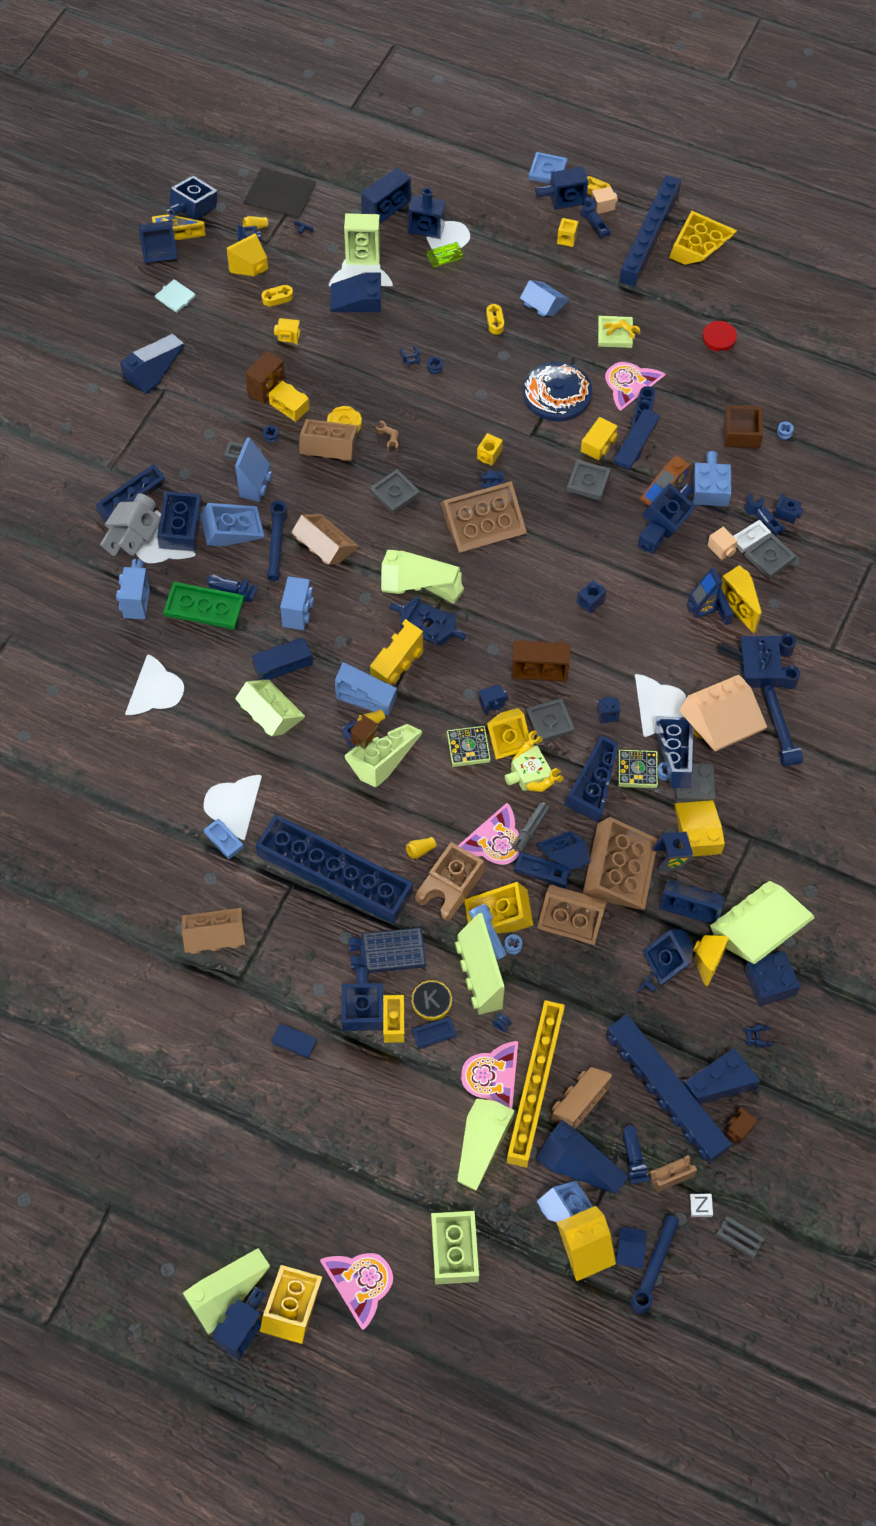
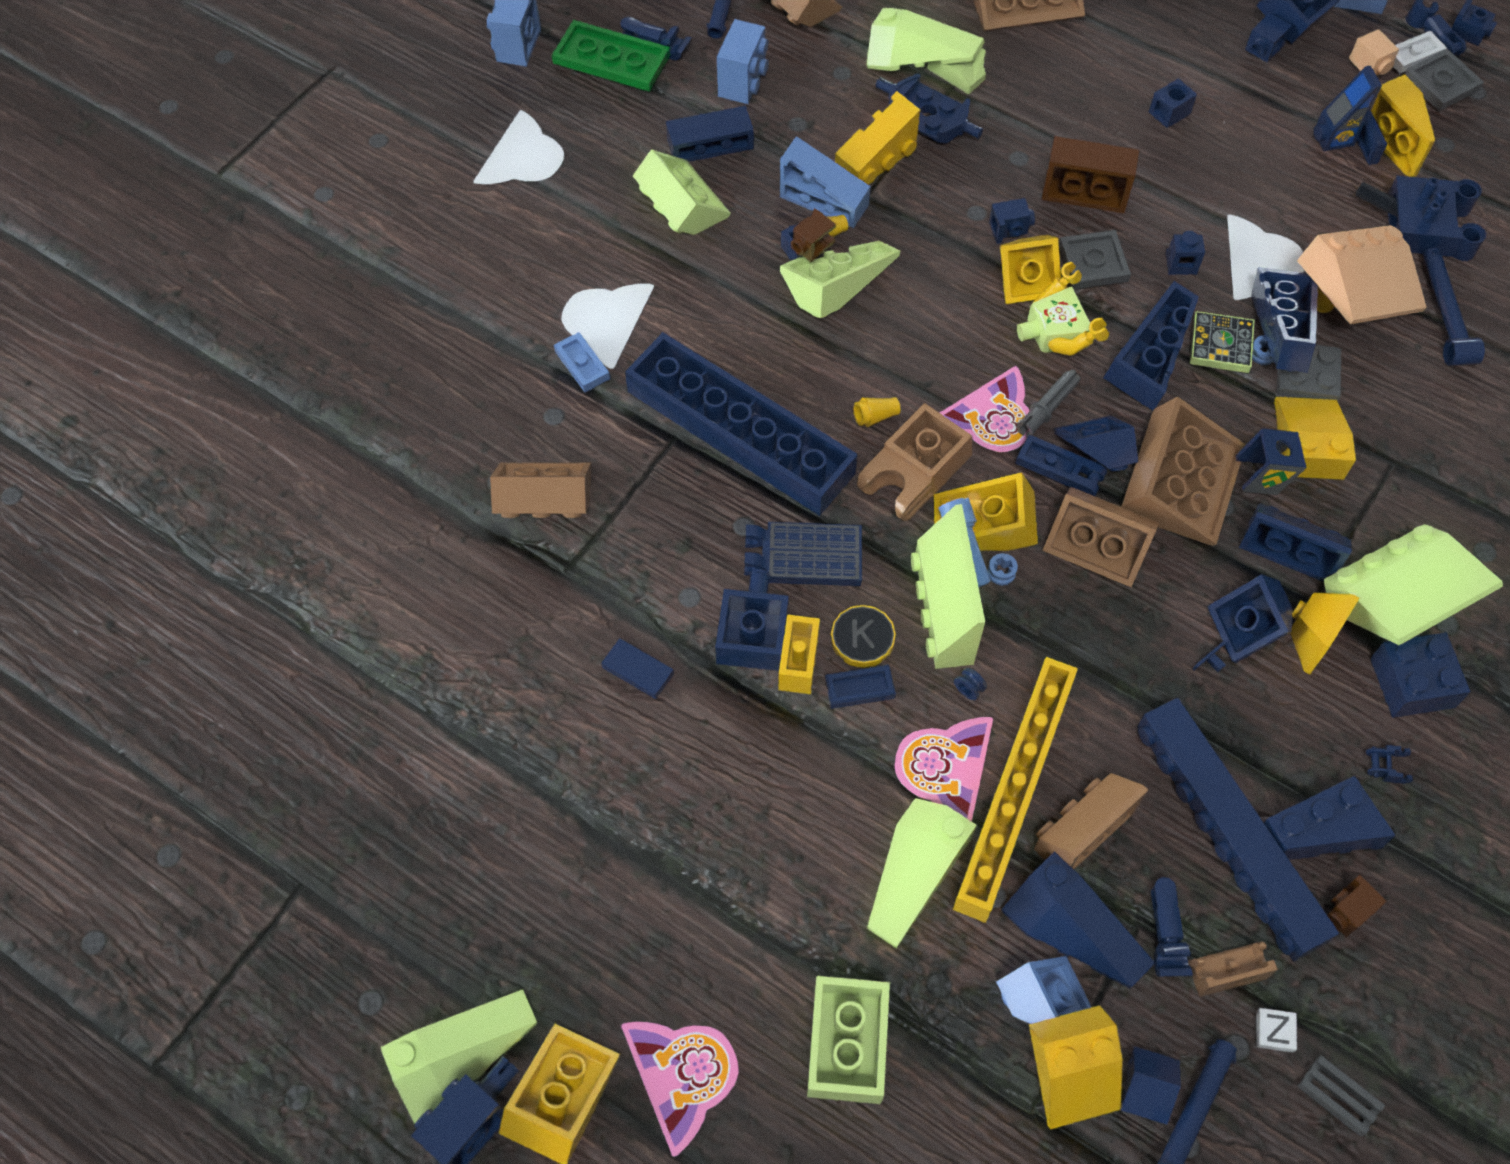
camera: 10 degrees right, 0 degrees up
(468, 746) = (967, 281): tile -> none

